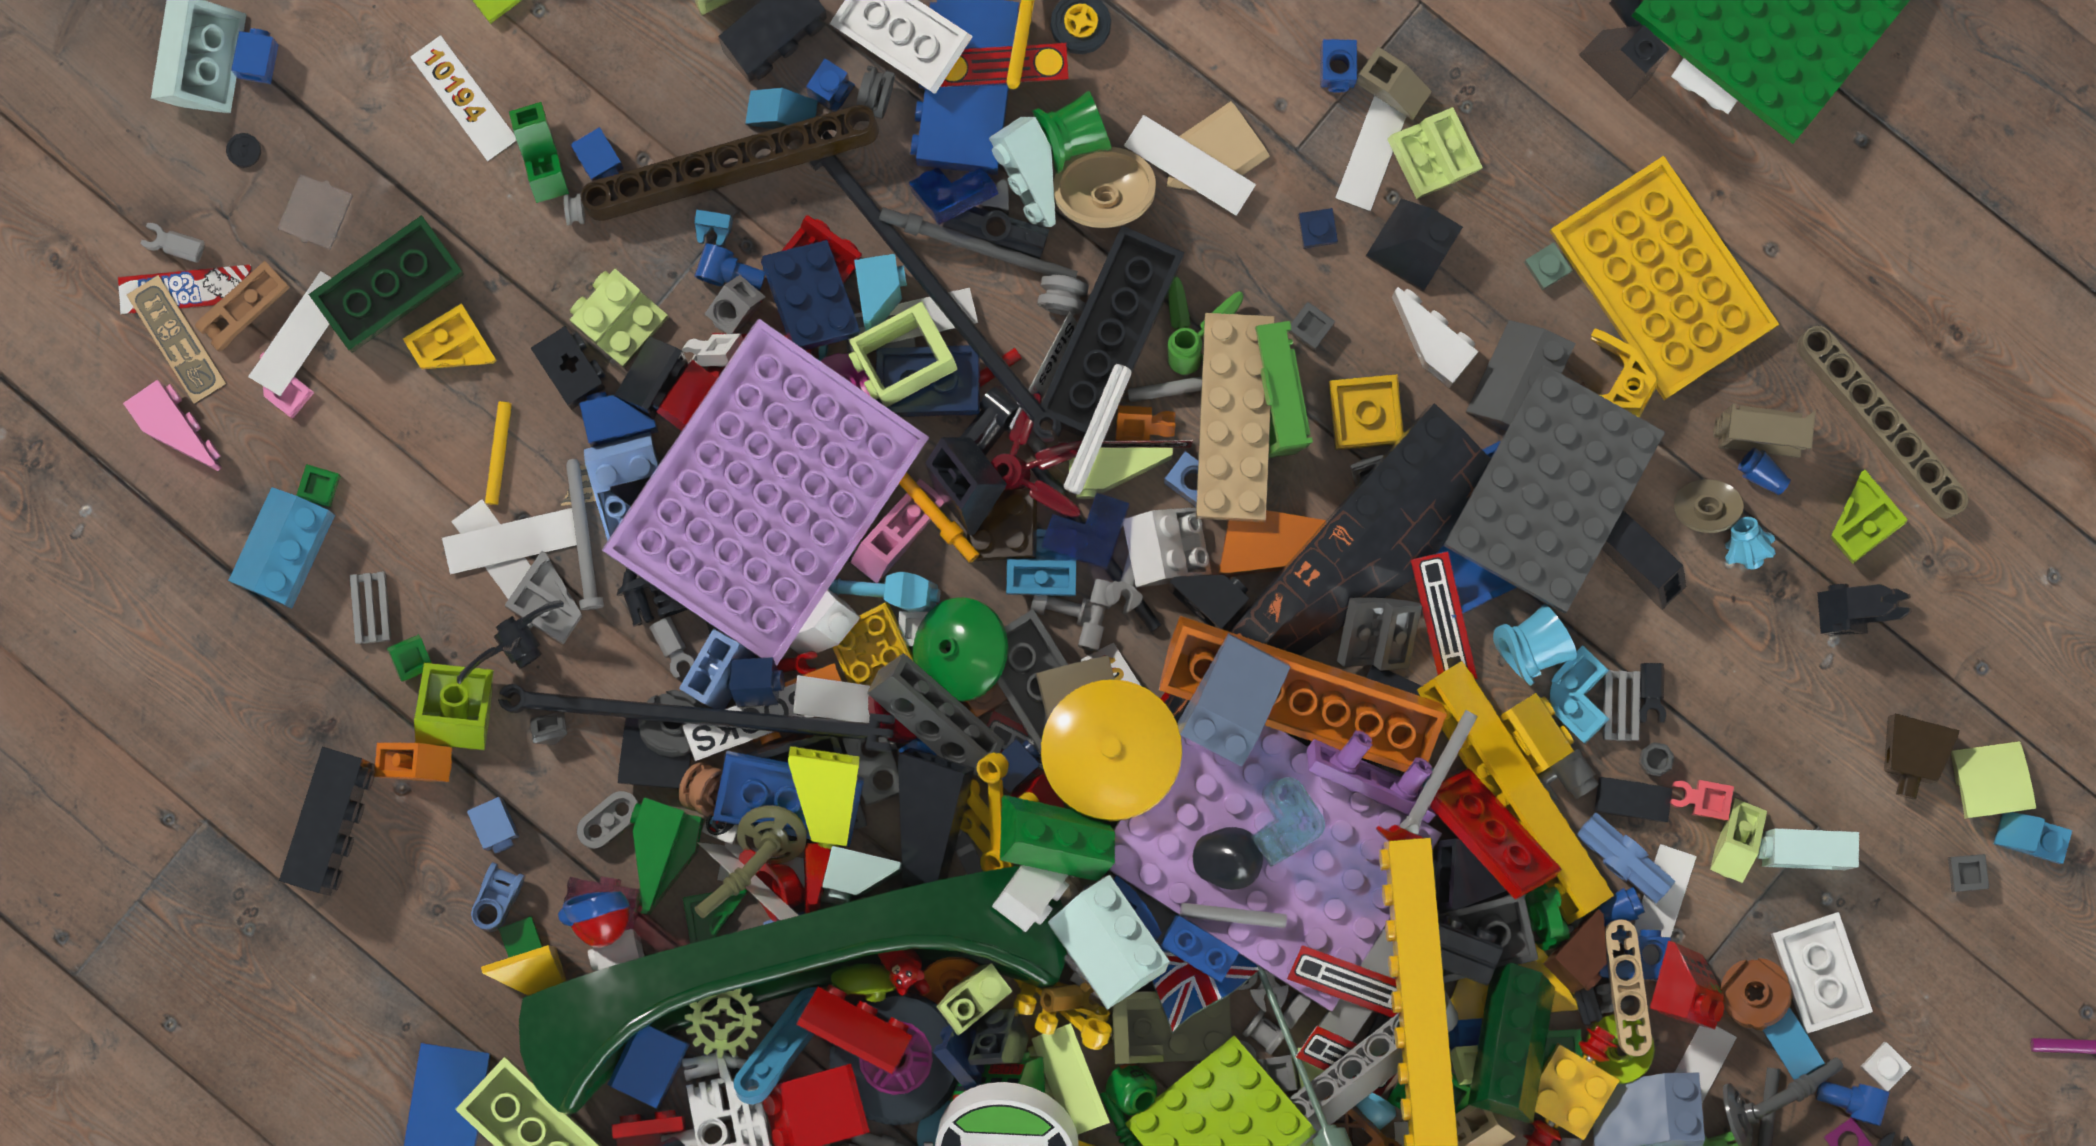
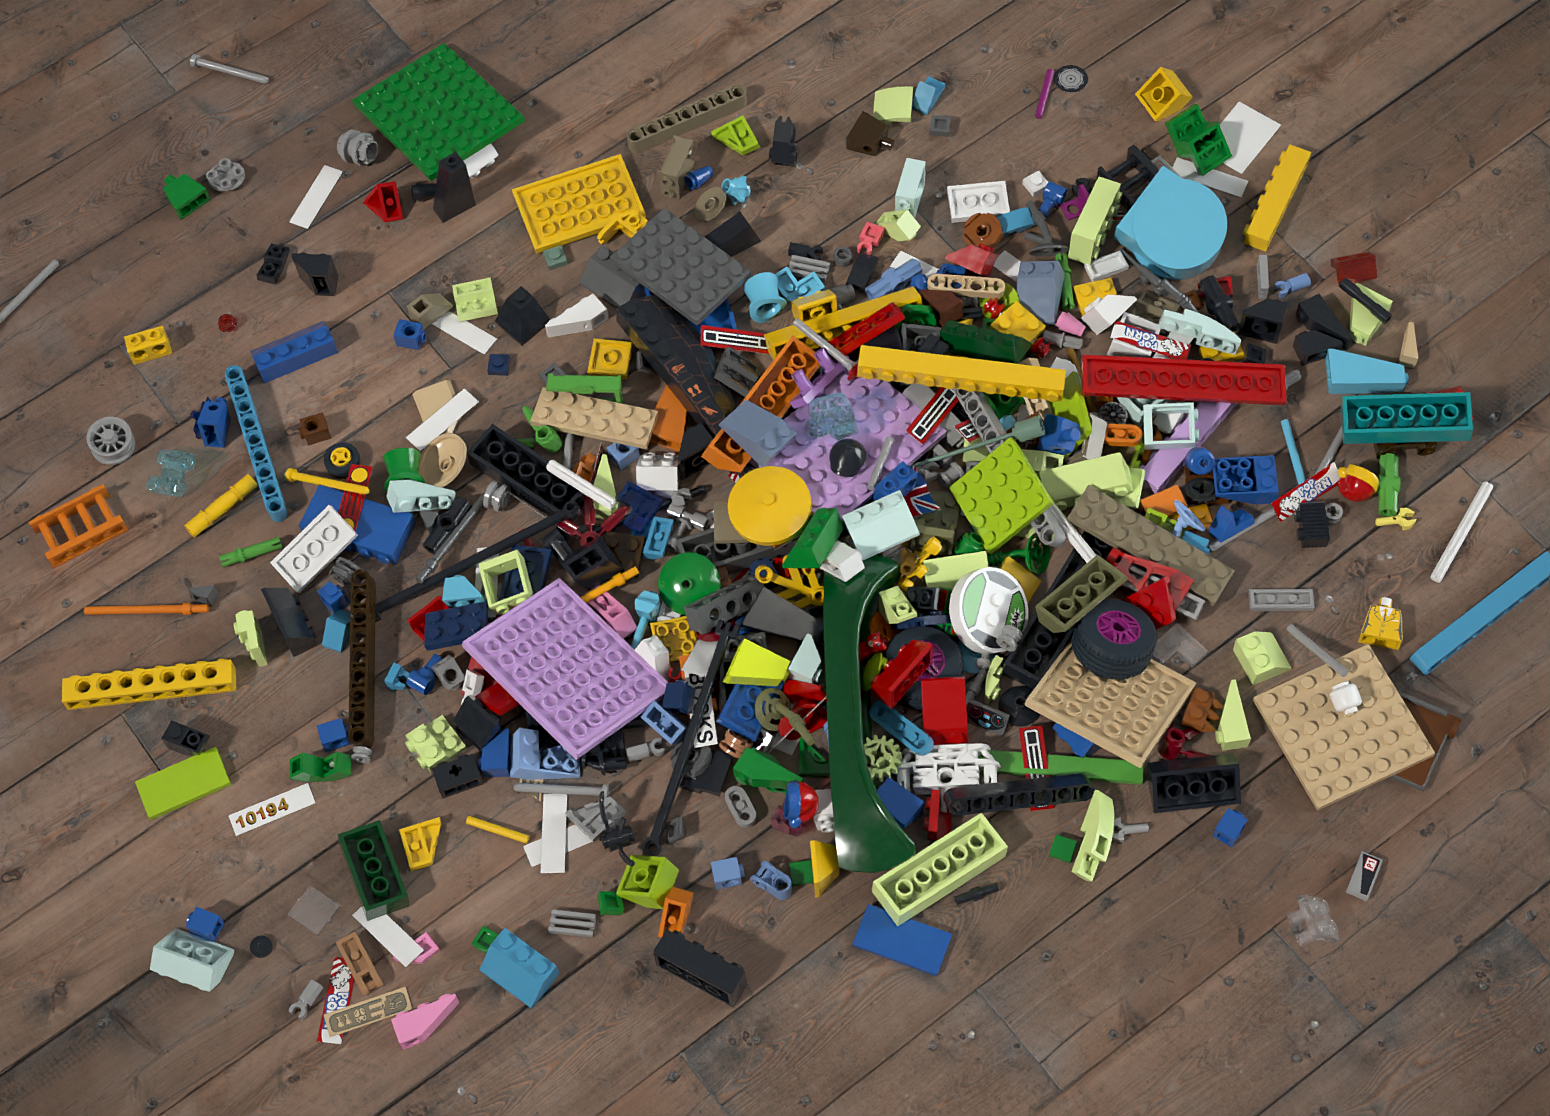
camera: 70 degrees left, 20 degrees down
(947, 199) = (422, 542): clear blue plate -> none

